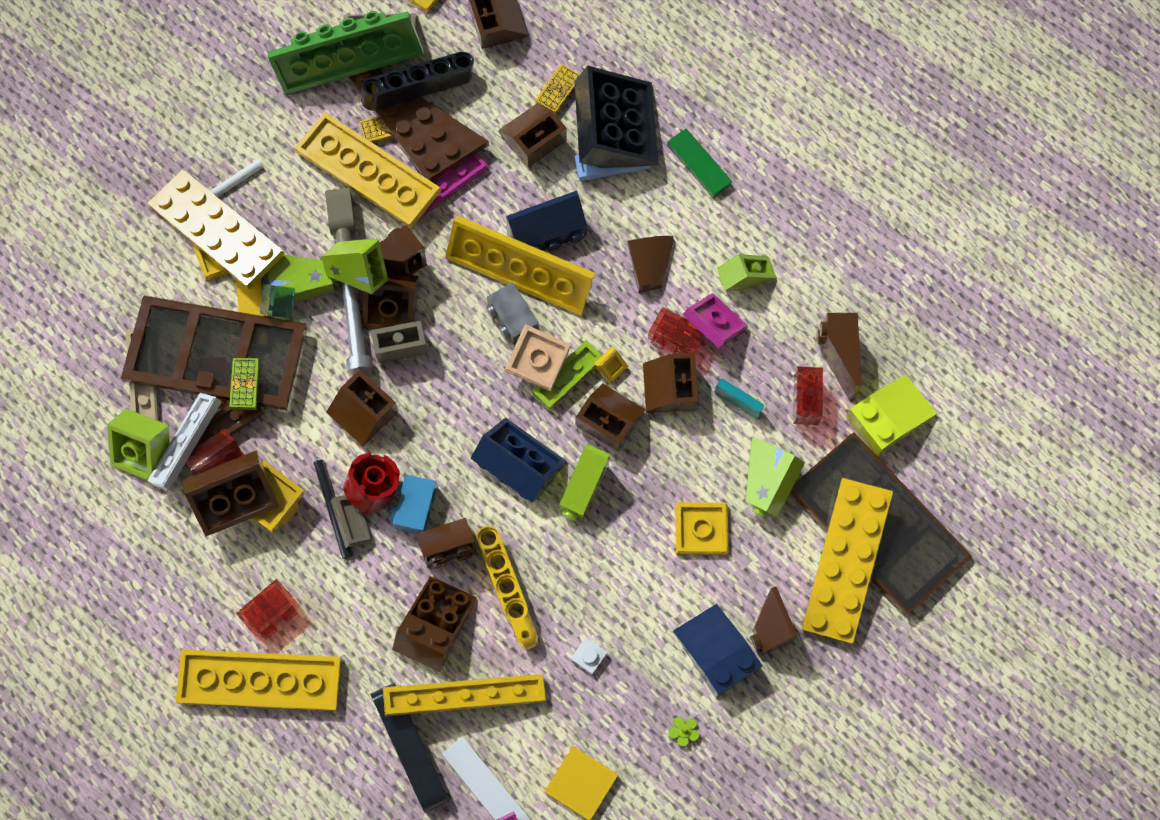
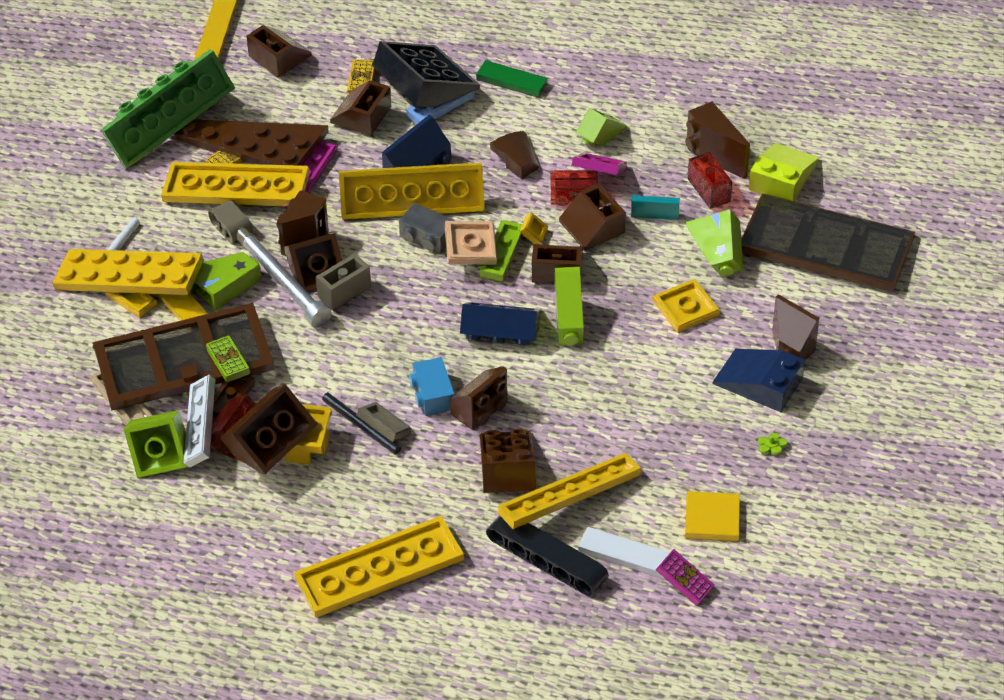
camera: 25 degrees left, 25 degrees down
(268, 610) = (354, 512): clear red brick -> none
(277, 301) = (217, 294): clear green panel -> none
(356, 264) = (275, 230): lime slope -> none
(361, 408) = (341, 337): reddish brown slope -> none
(371, 482) = (386, 381): red brick -> none
(417, 81) = (240, 108): black beam -> none
(524, 624) = (553, 408): yellow piece -> none
(588, 656) = (655, 428): white plate -> none
(847, 560) = (821, 269): yellow plate -> none

